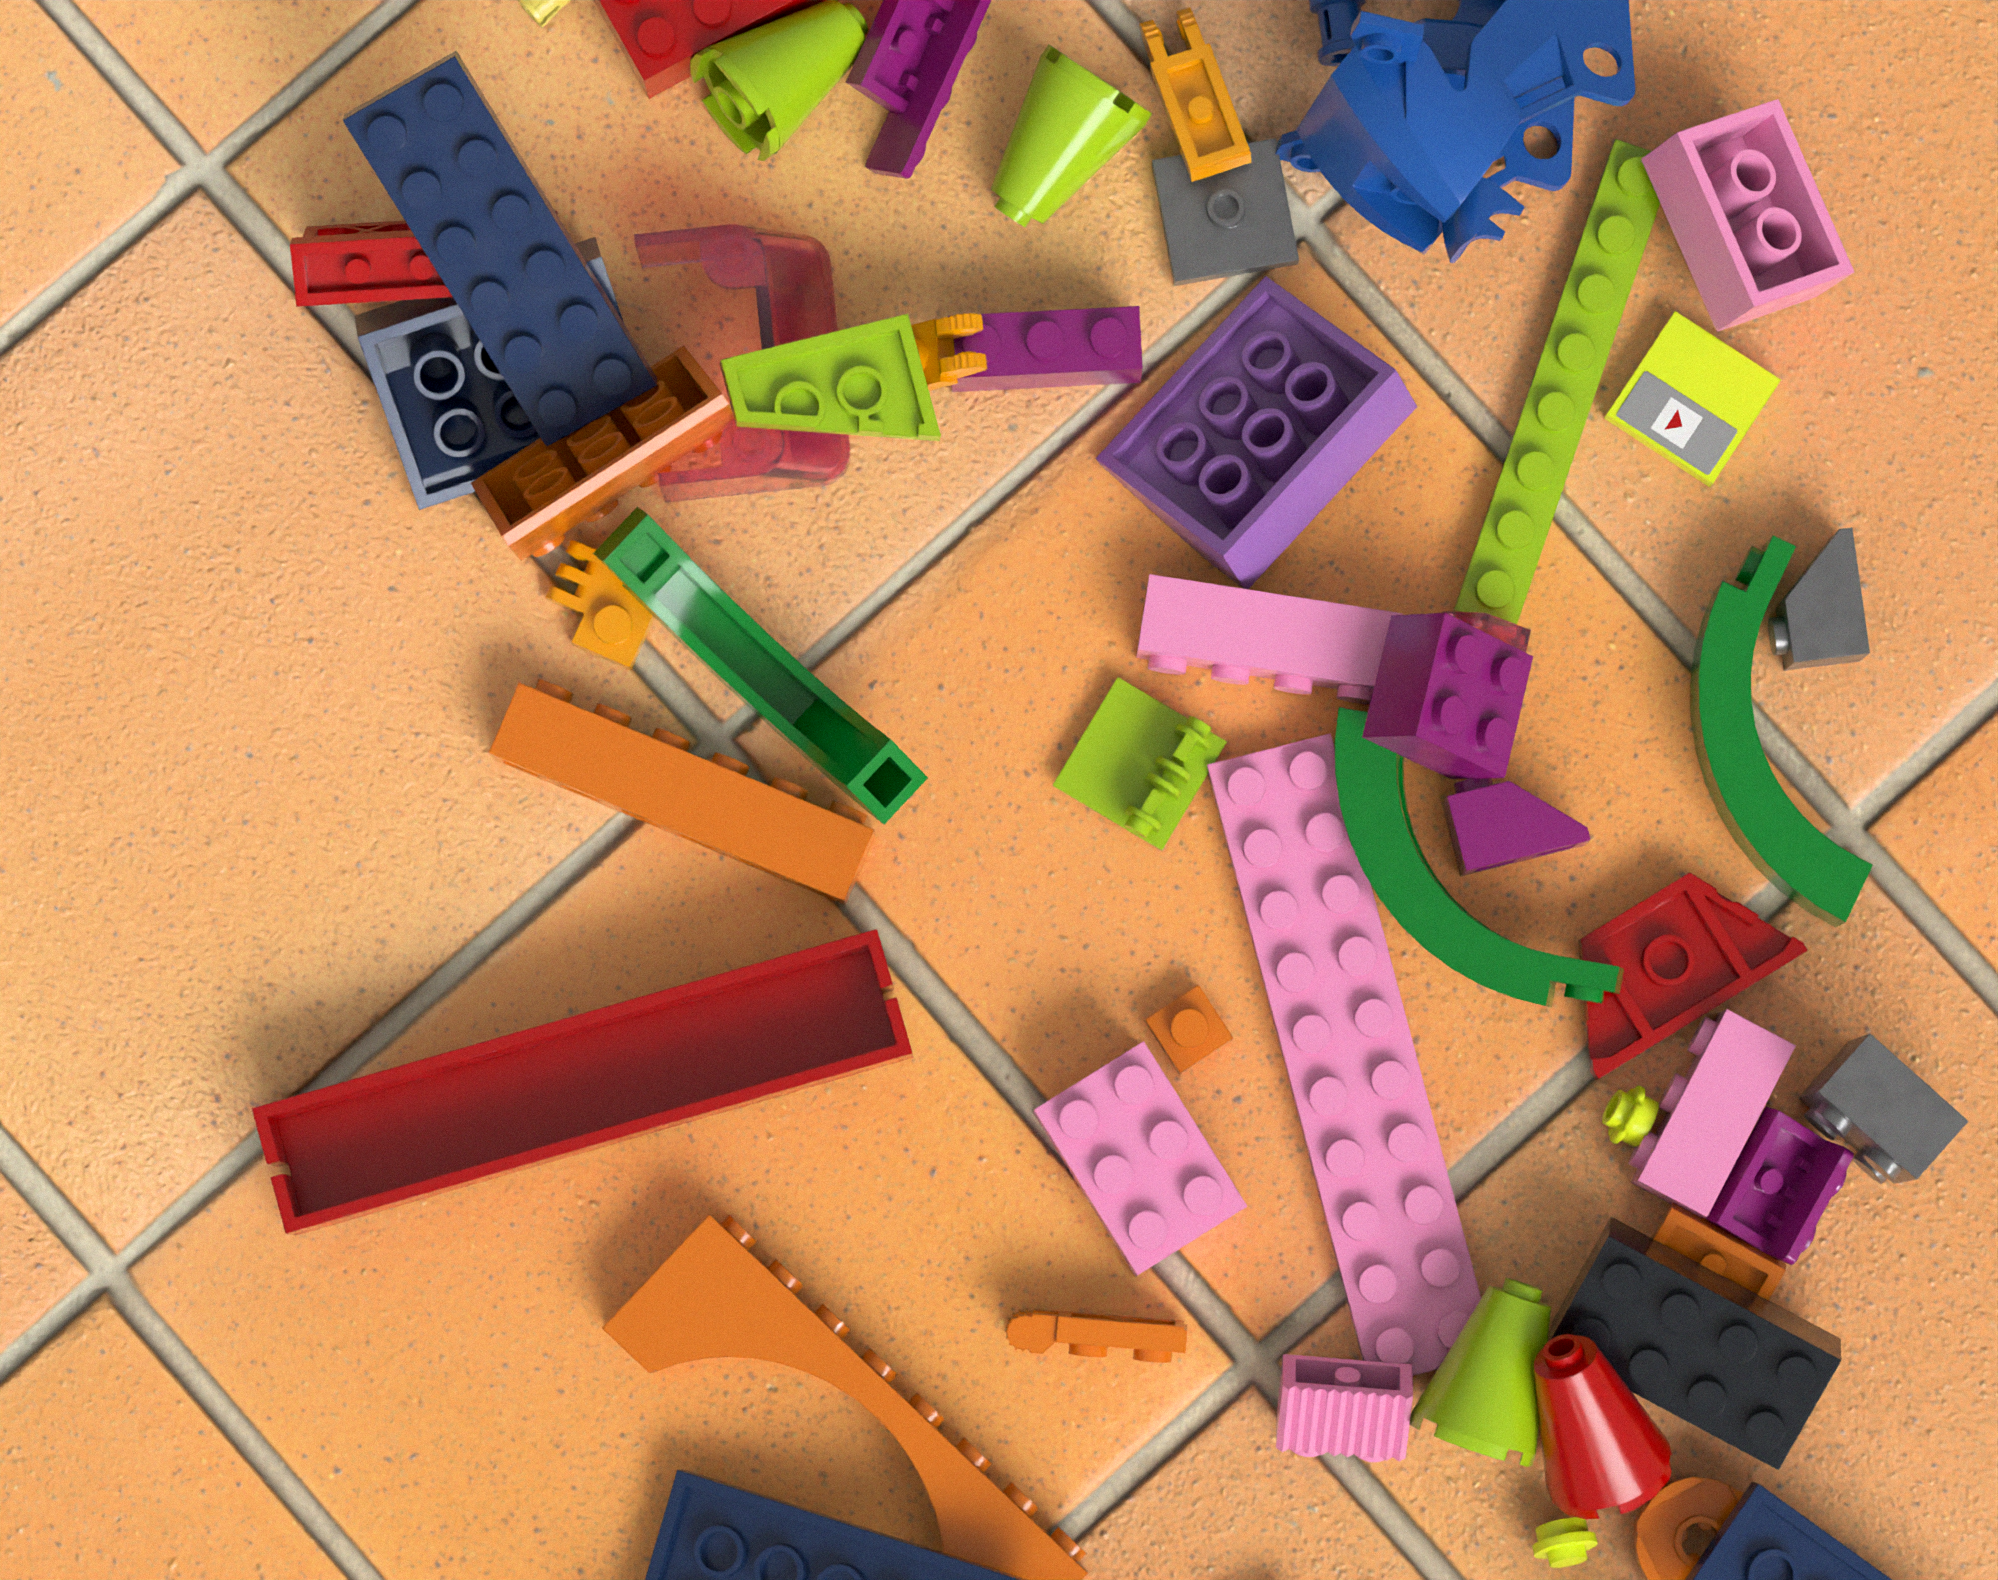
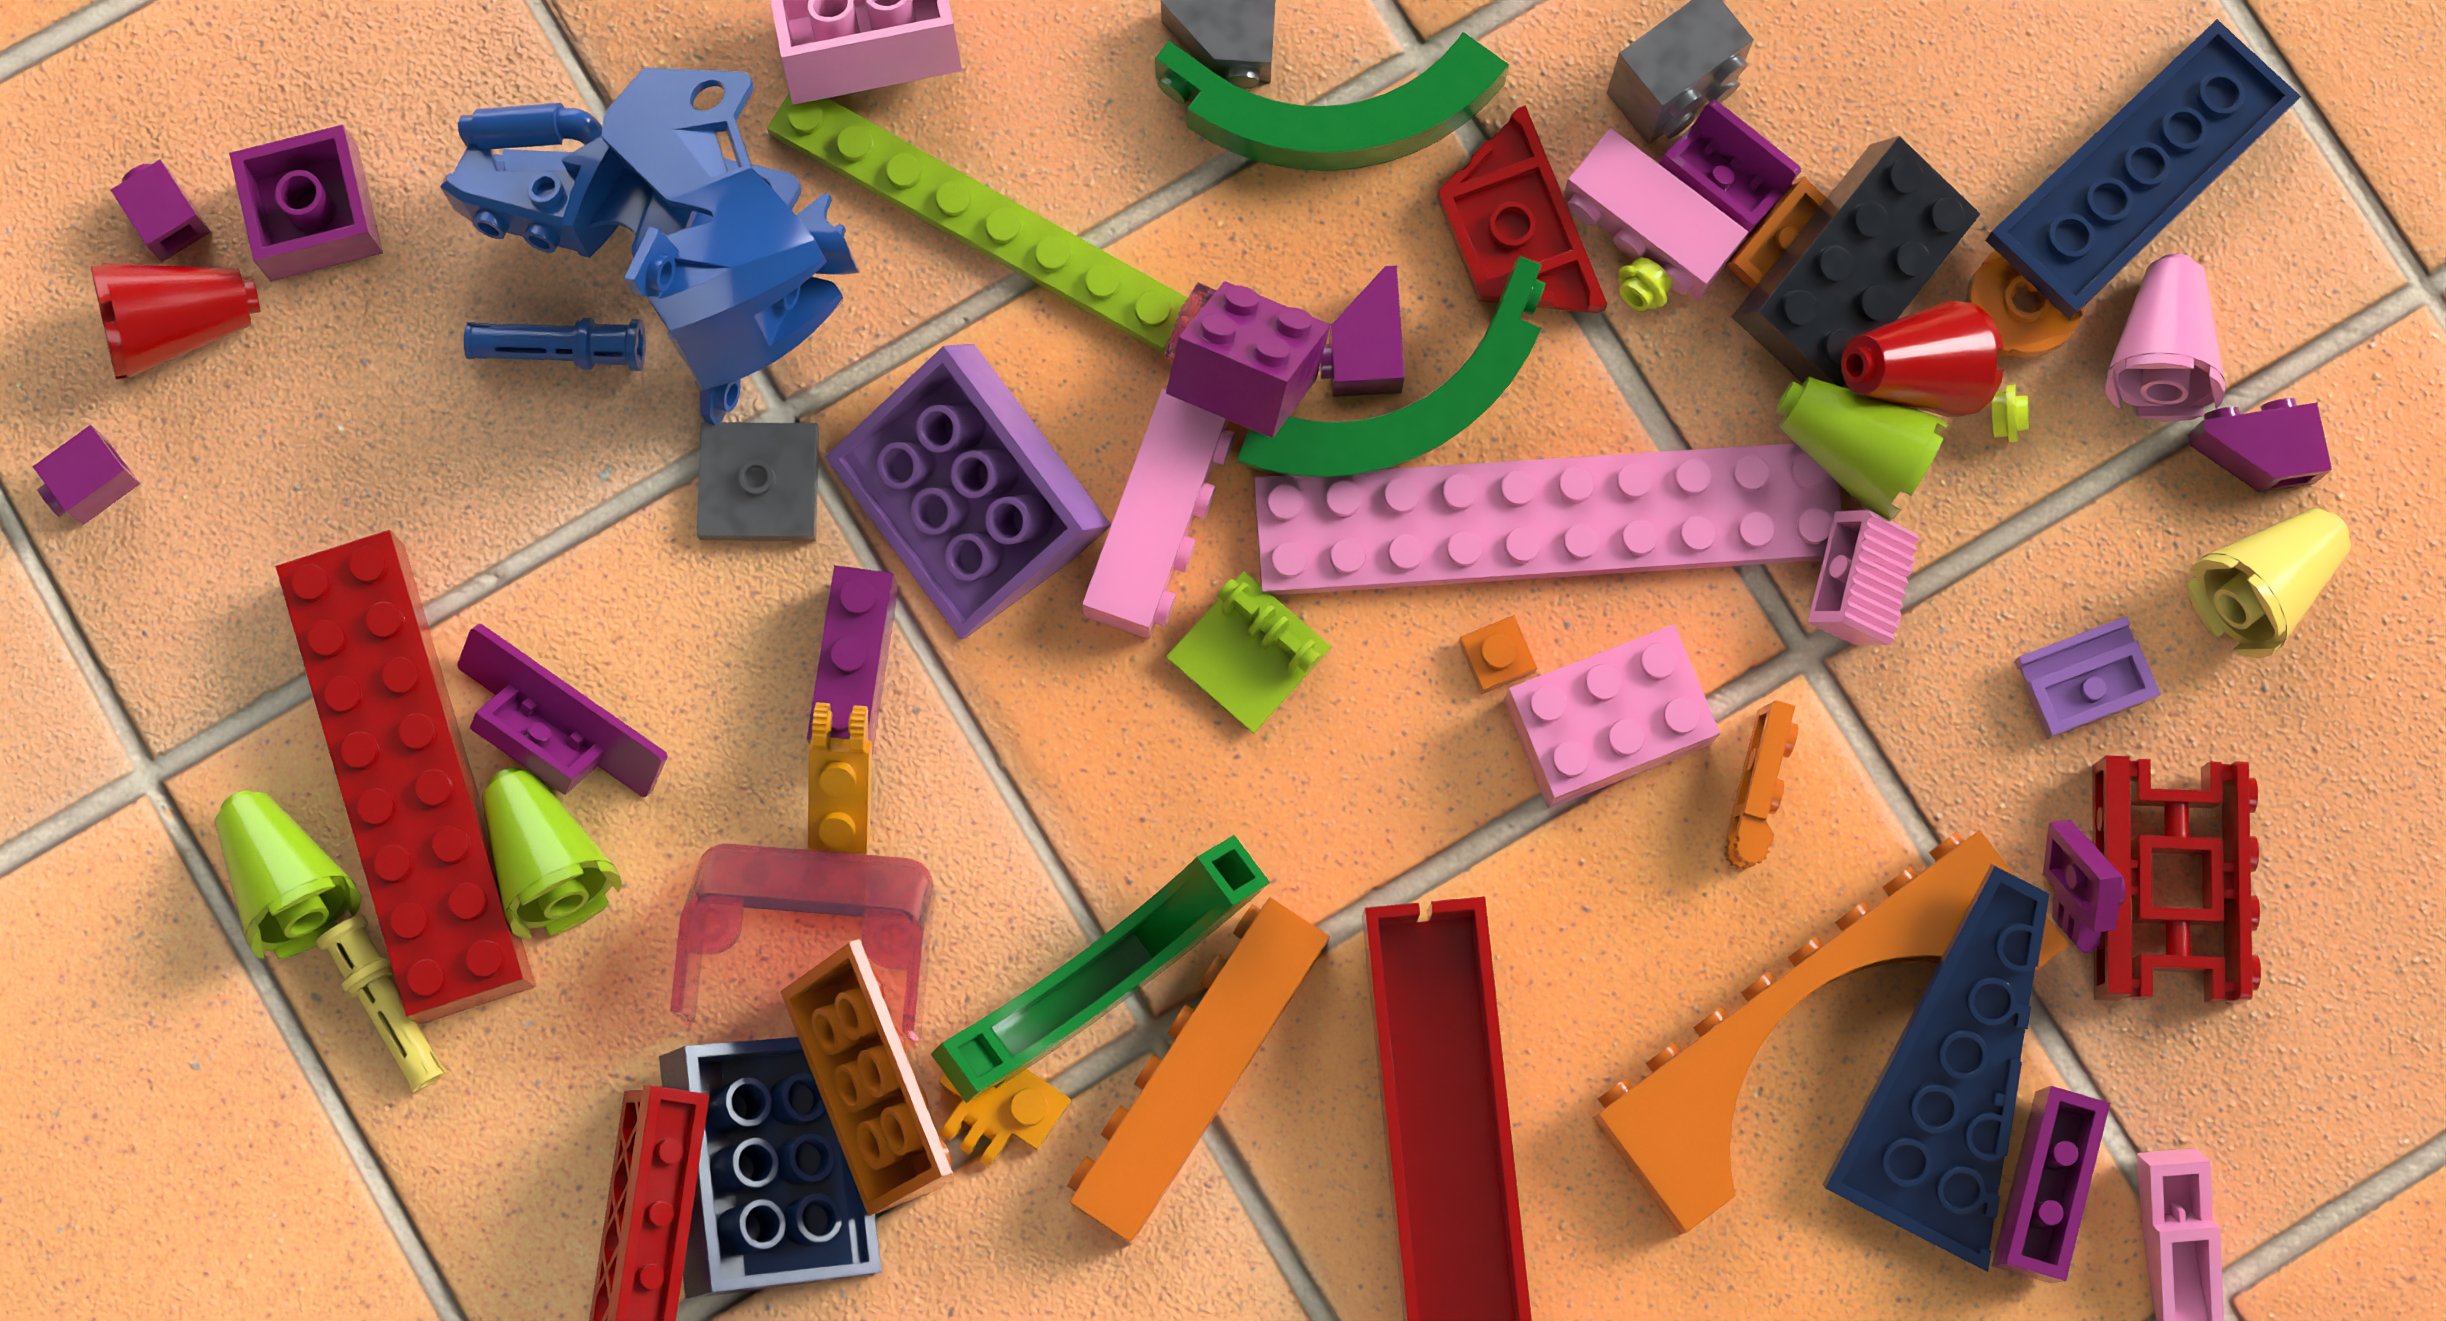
camera: 80 degrees left, 5 degrees down
(500, 248) = (658, 1134): dark blue plate -> none
(836, 383) = (853, 845): lime wing -> none
(1061, 137) = (660, 608): lime cone -> none
(1196, 100) = (649, 484): light orange hinge -> none
(1692, 399) = (1014, 110): neon yellow tile -> none

